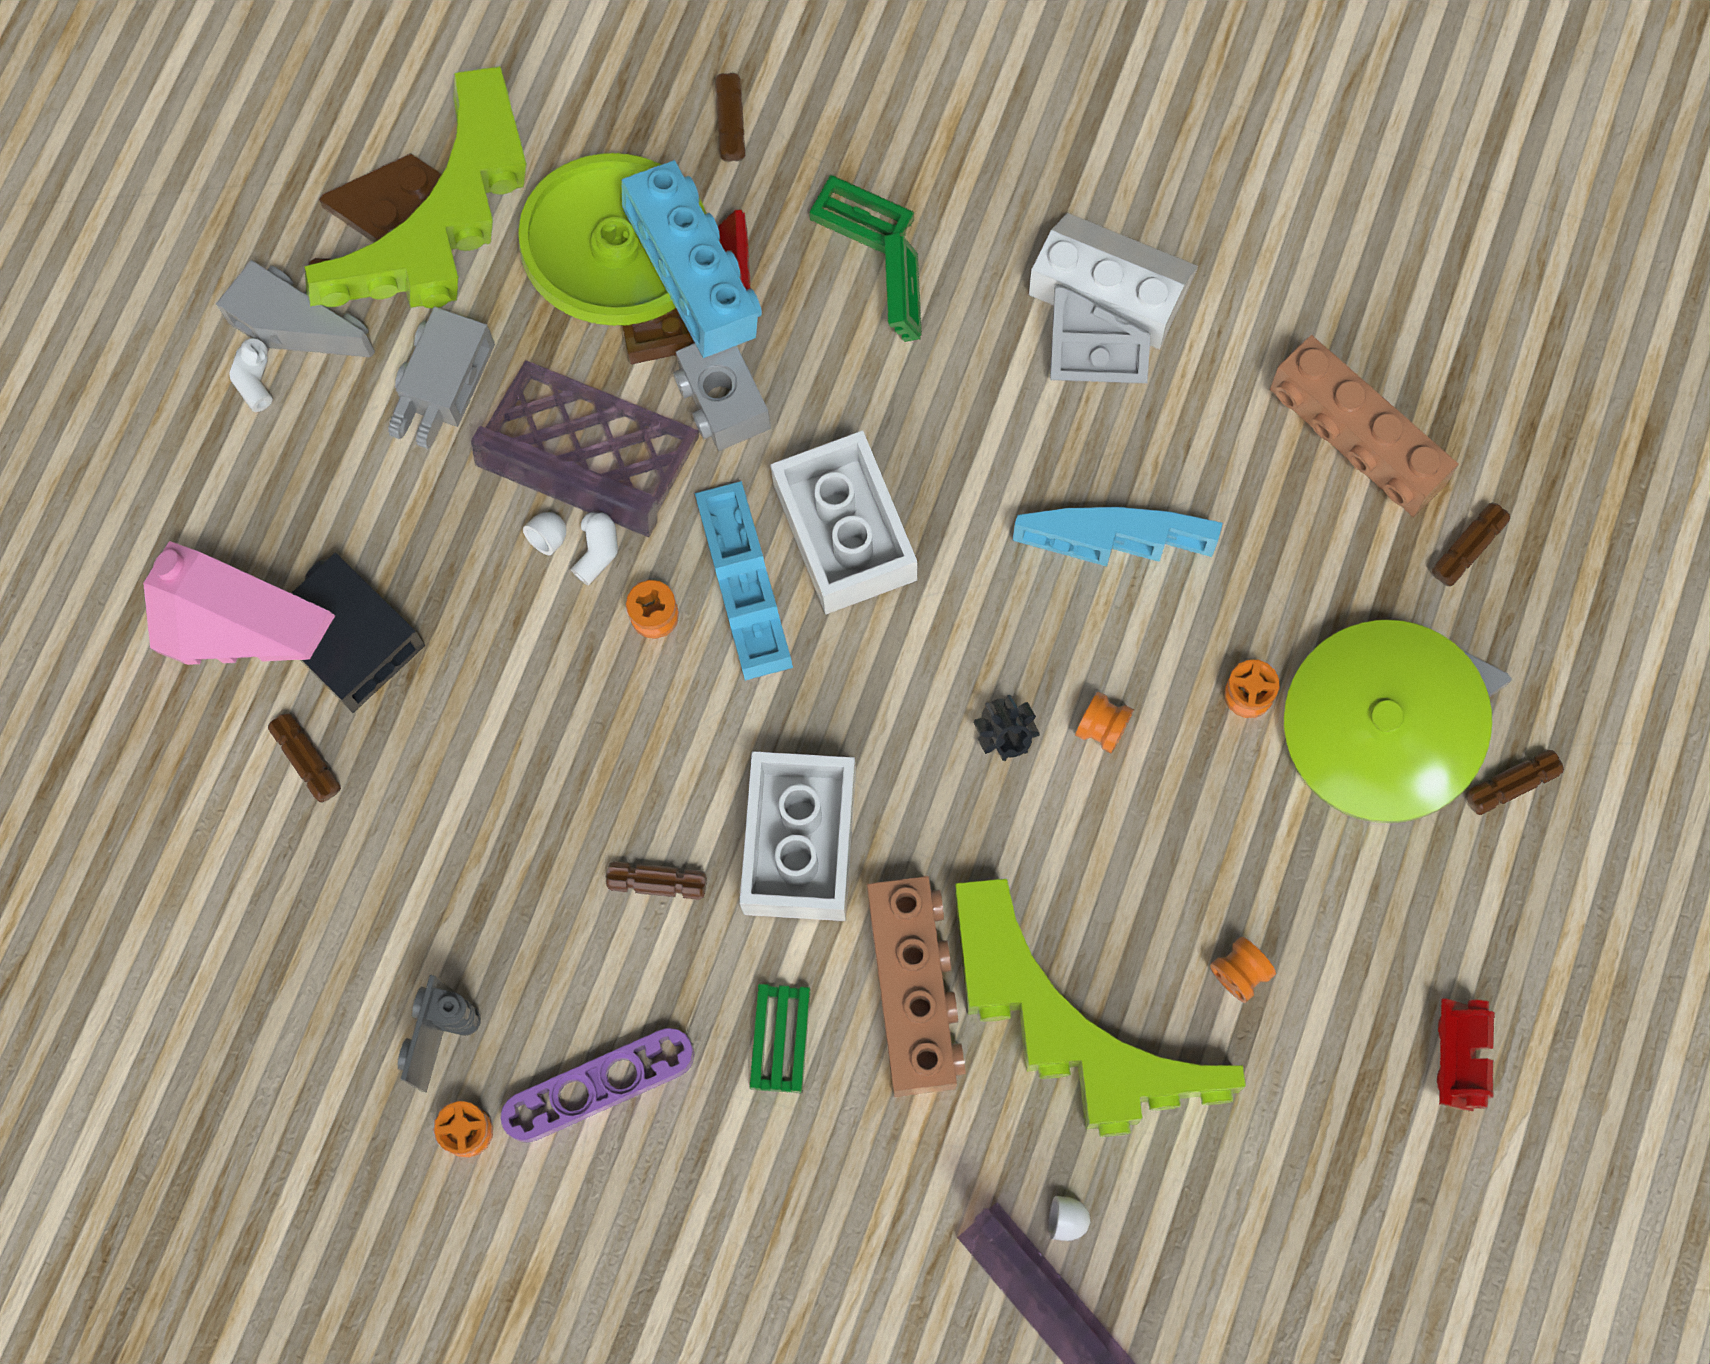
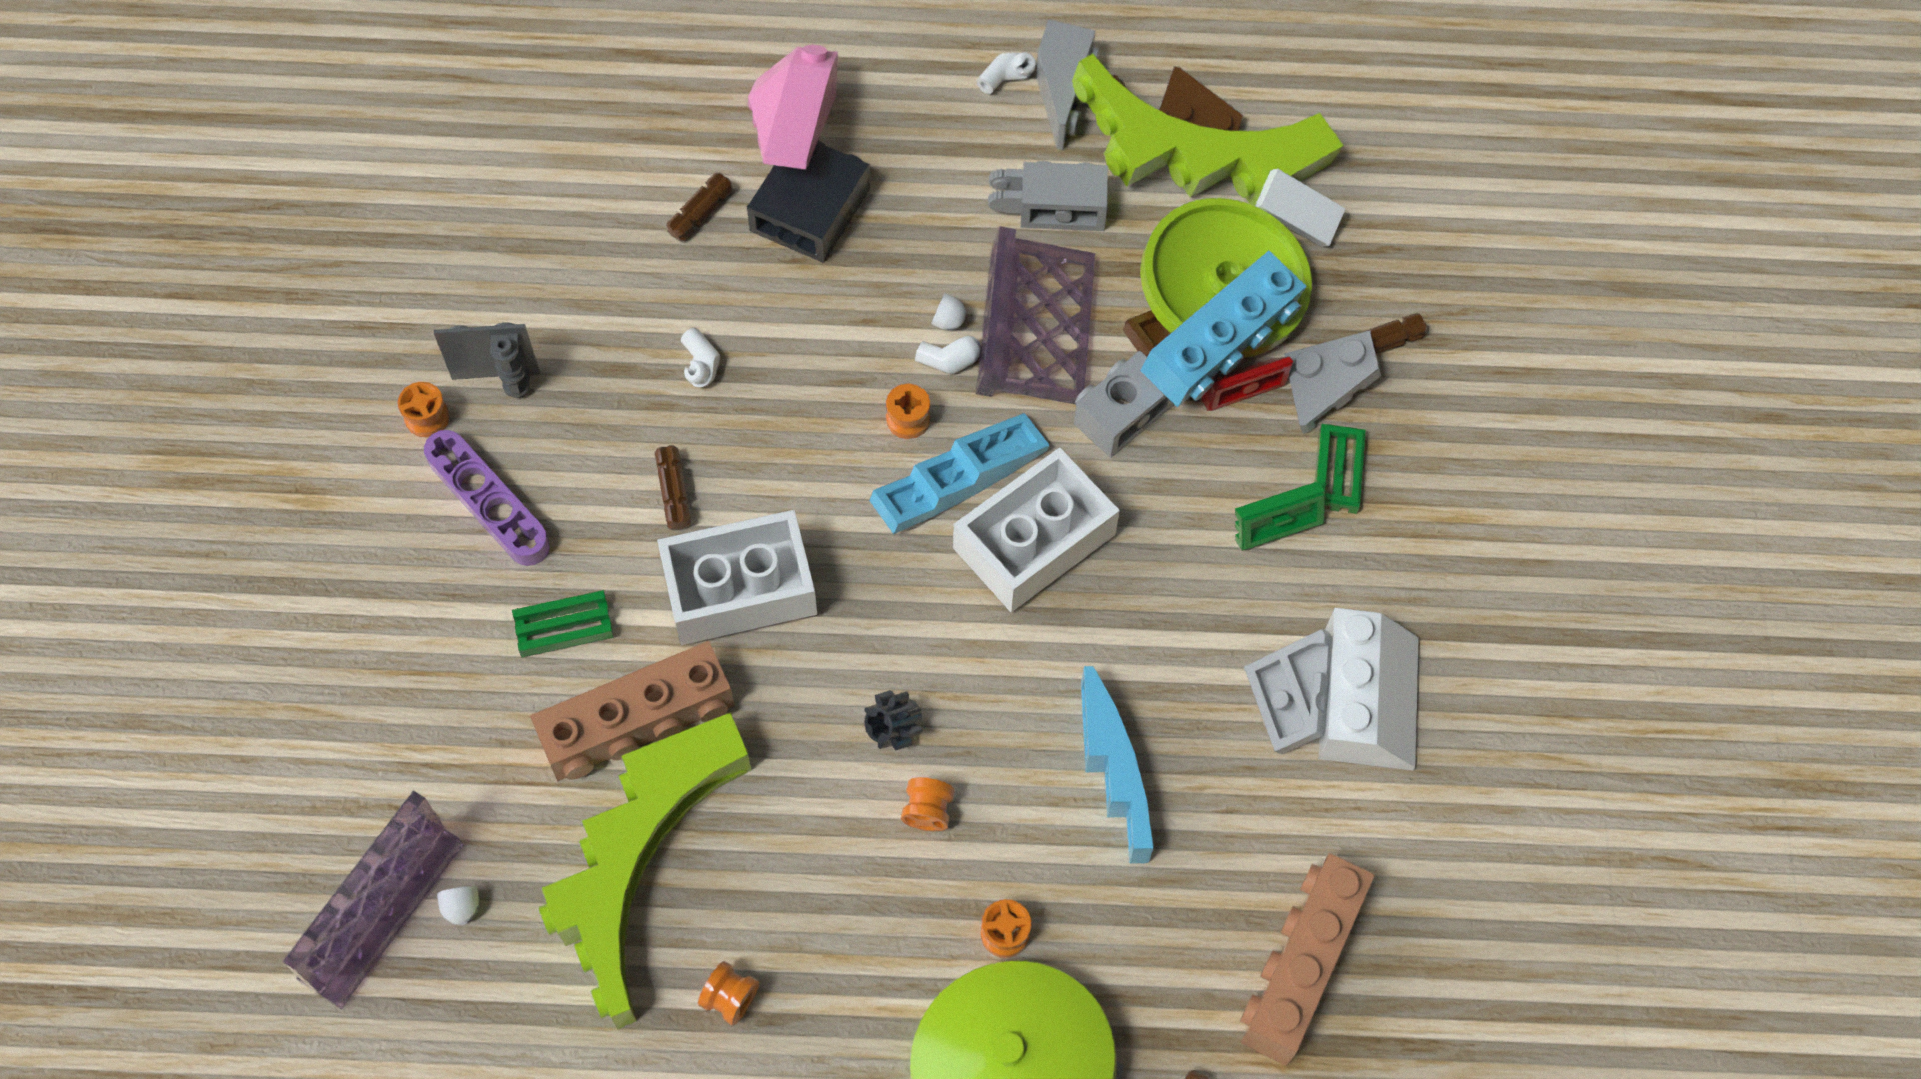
camera: 65 degrees right, 10 degrees down
(507, 804) = (704, 361): none -> white arm
(556, 137) = (1300, 208): none -> white tile
(761, 182) = (1330, 375): none -> light grey wing

